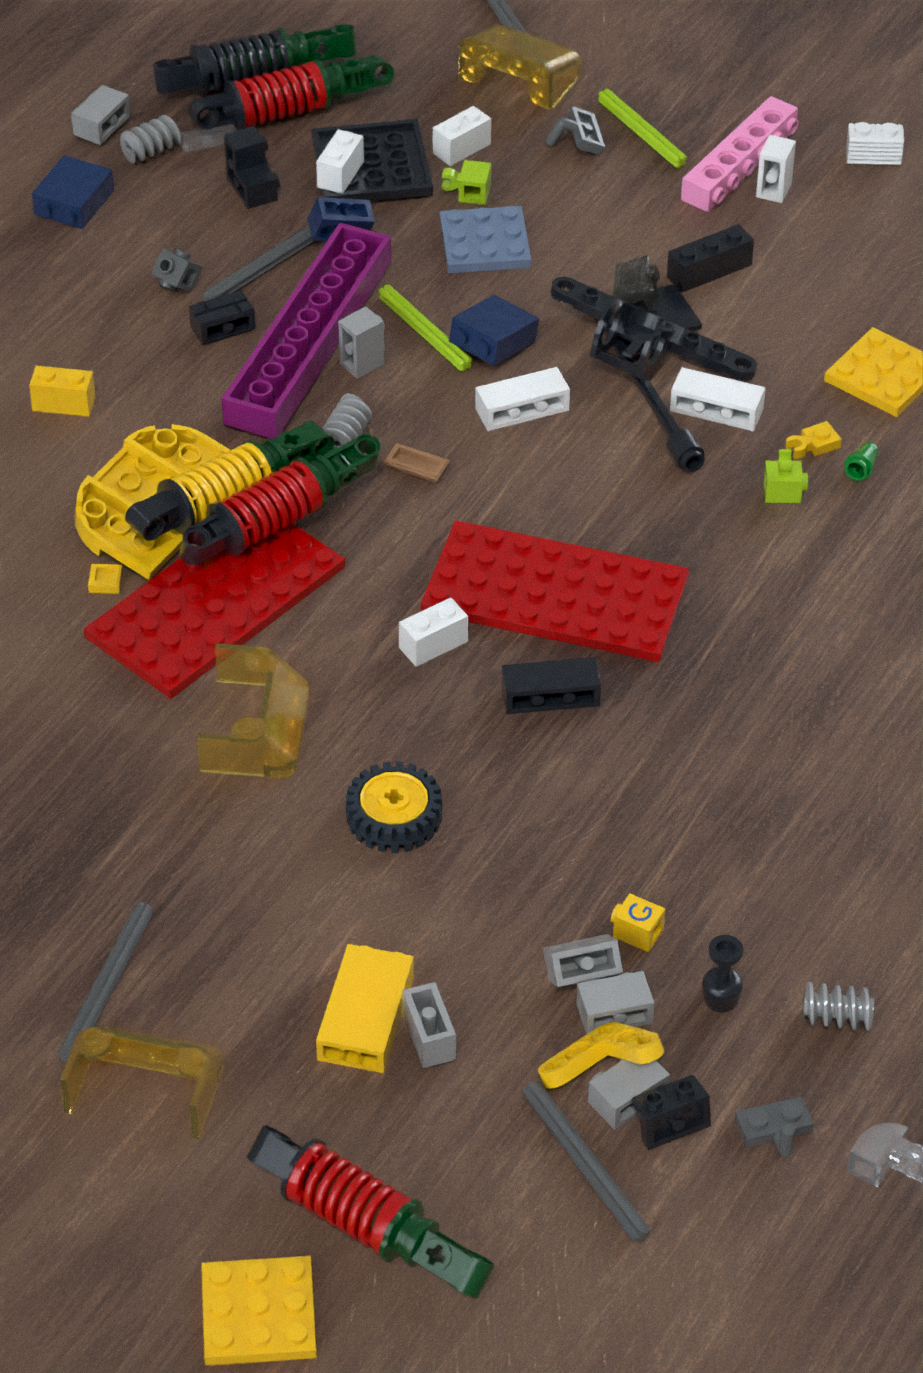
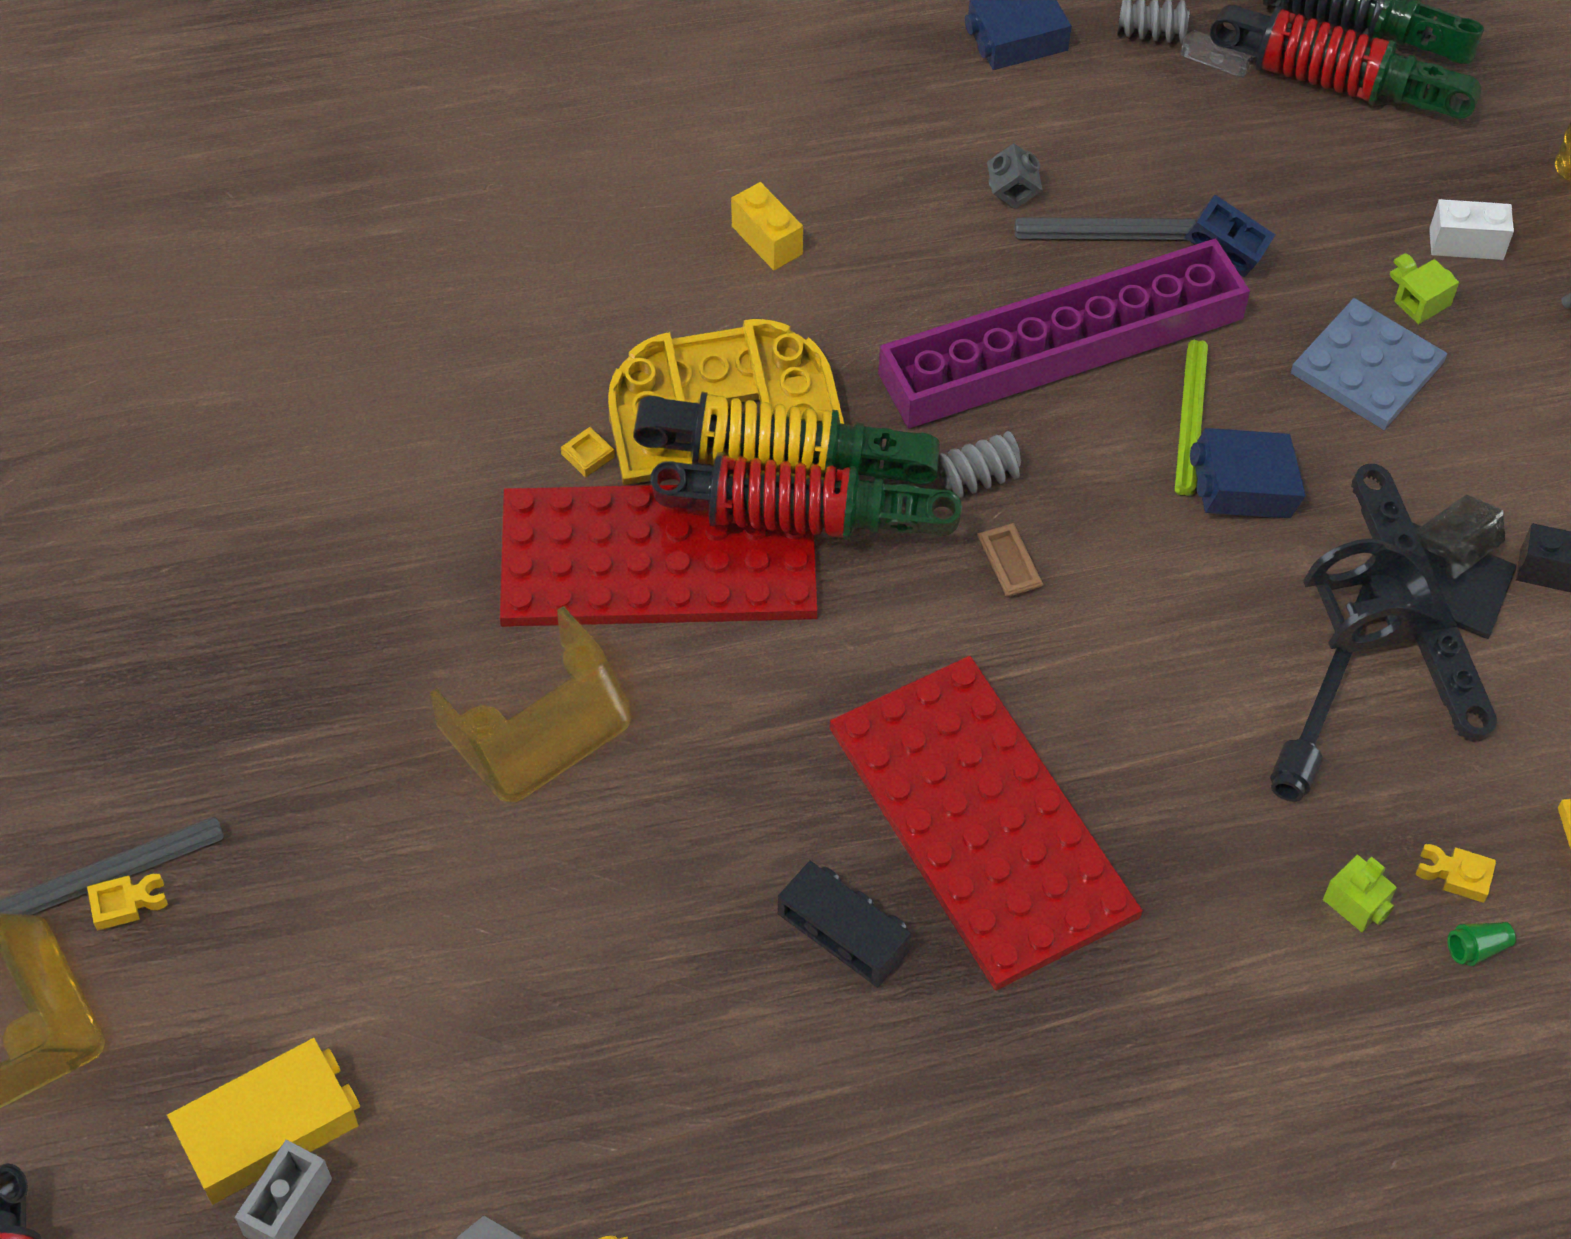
camera: 45 degrees right, 10 degrees up
(140, 982) = (119, 900): none -> yellow plate
(222, 317) = (1002, 257): black brick -> none
(248, 167) = (1209, 116): black brick -> none
(340, 161) = (1299, 170): white brick -> none
(361, 342) = (1094, 386): light grey brick -> none
(392, 163) = (1347, 194): black plate -> none
(394, 807) = (539, 951): wheel -> none
(433, 631) = (799, 763): white brick -> none
(522, 398) = (1192, 573): white brick -> none
(717, 399) = (1401, 737): white brick -> none

